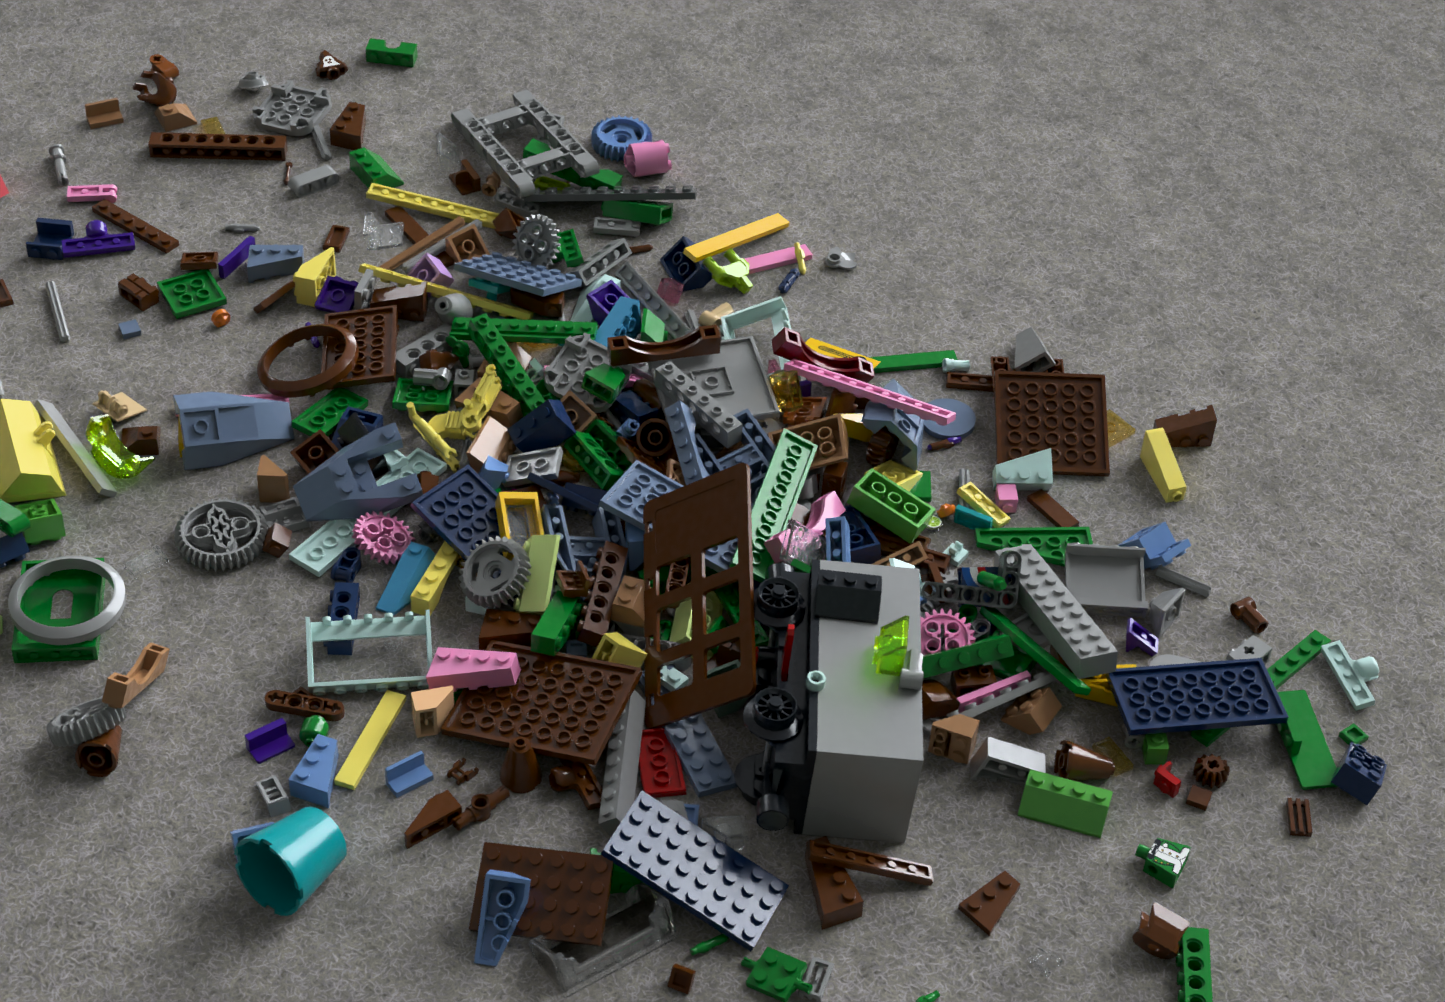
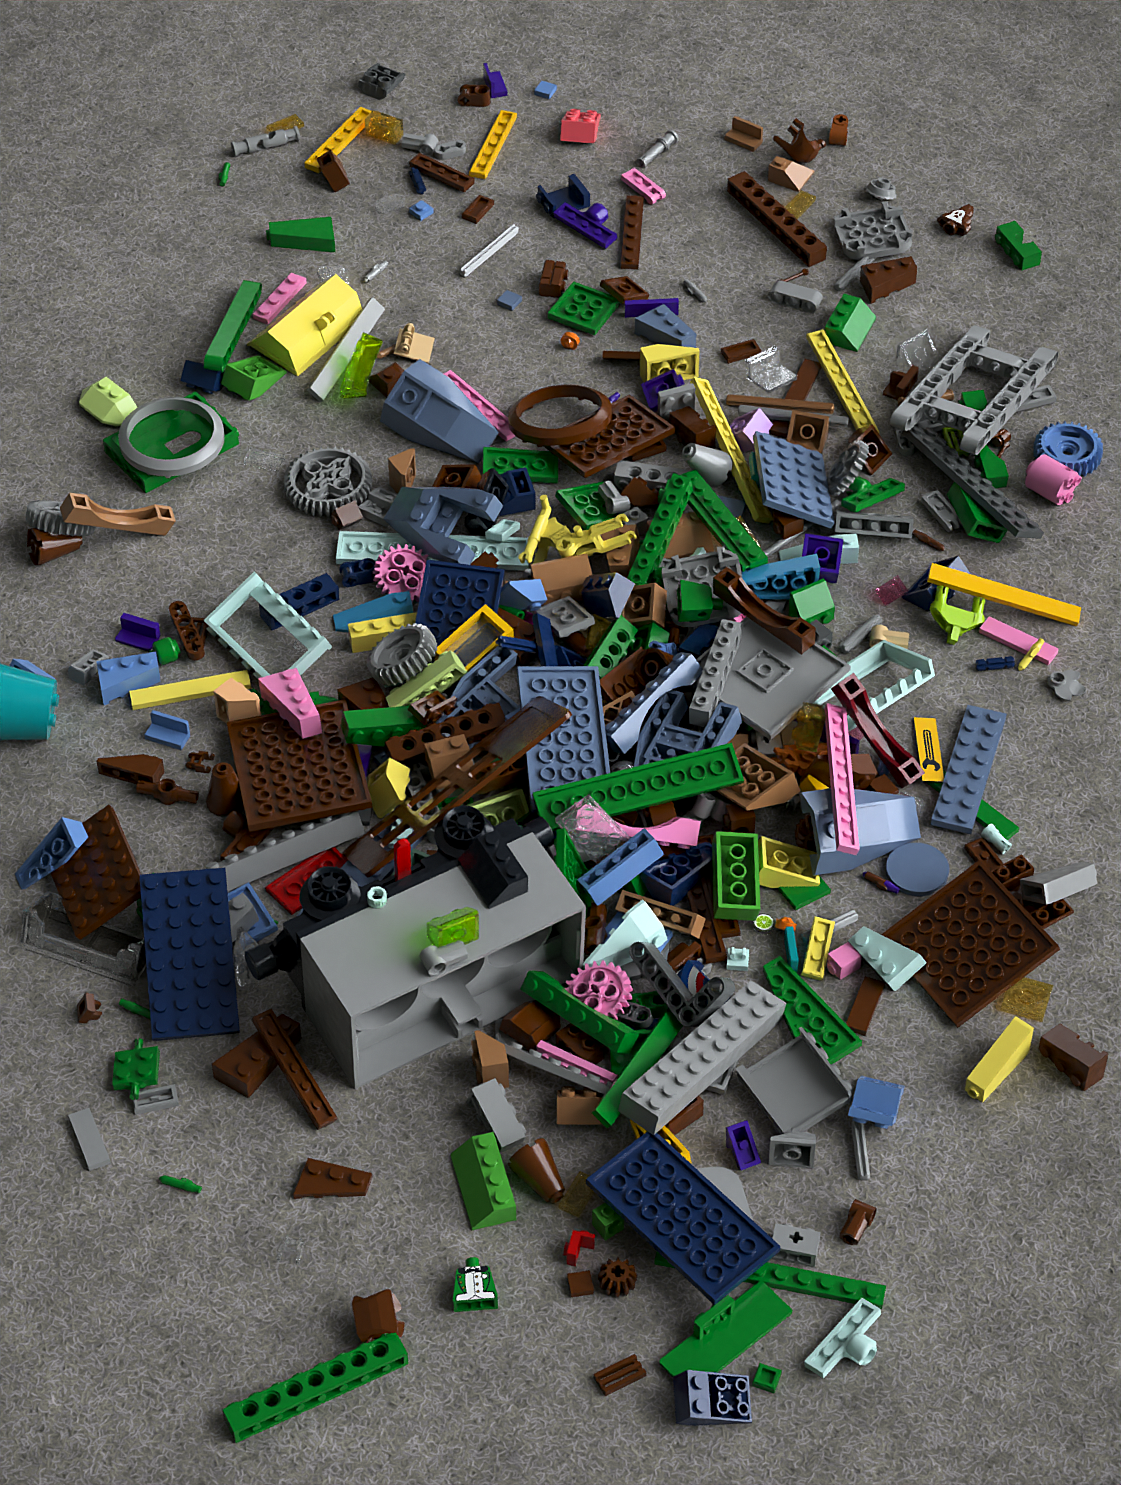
camera: 60 degrees right, 5 degrees up
(651, 300) = (862, 592): light grey tile -> none
(878, 344) = (968, 769): none -> sand blue plate
(991, 581) = (687, 988): green cylinder -> none

